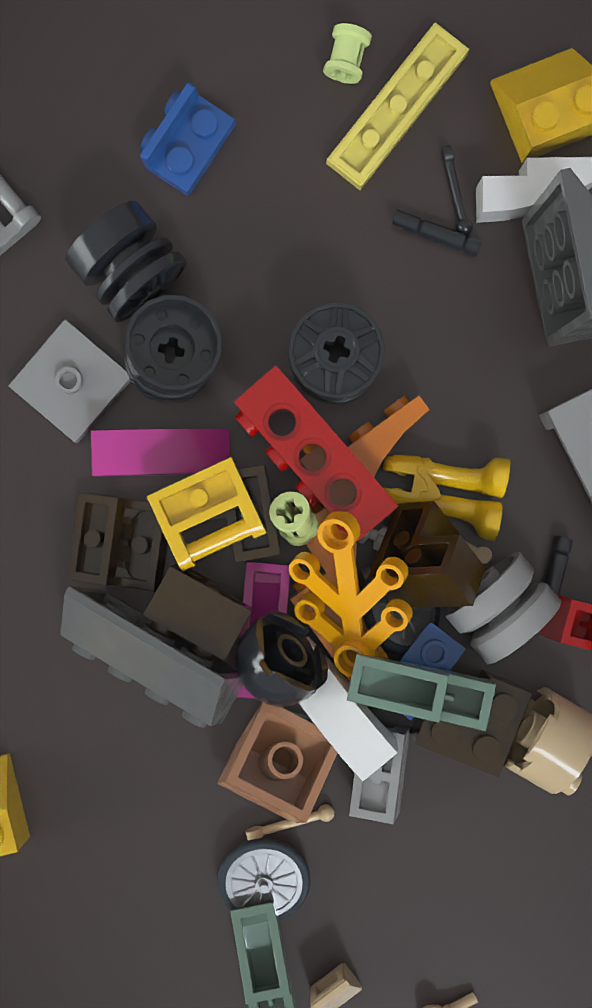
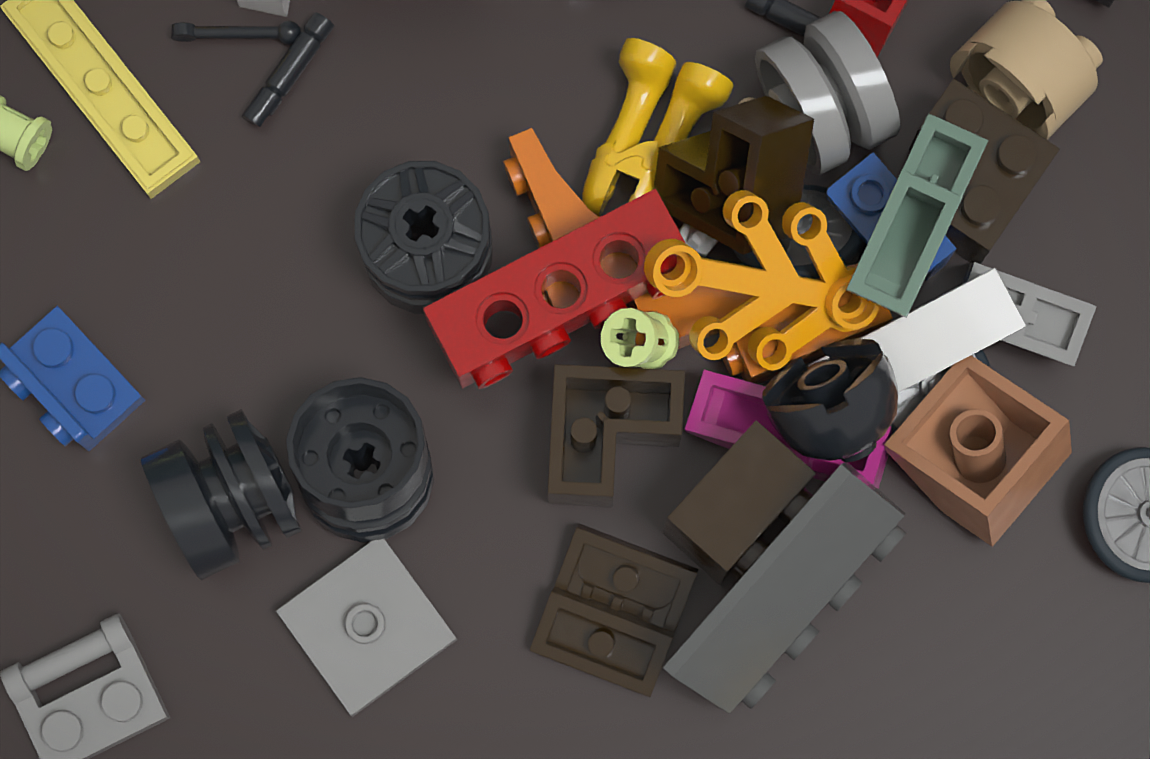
camera: 80 degrees left, 10 degrees down
(157, 451) = (500, 516): dark pink slope -> none
(199, 500) = (584, 459): yellow plate -> none
(324, 813) = (1069, 408): tan hinge -> none

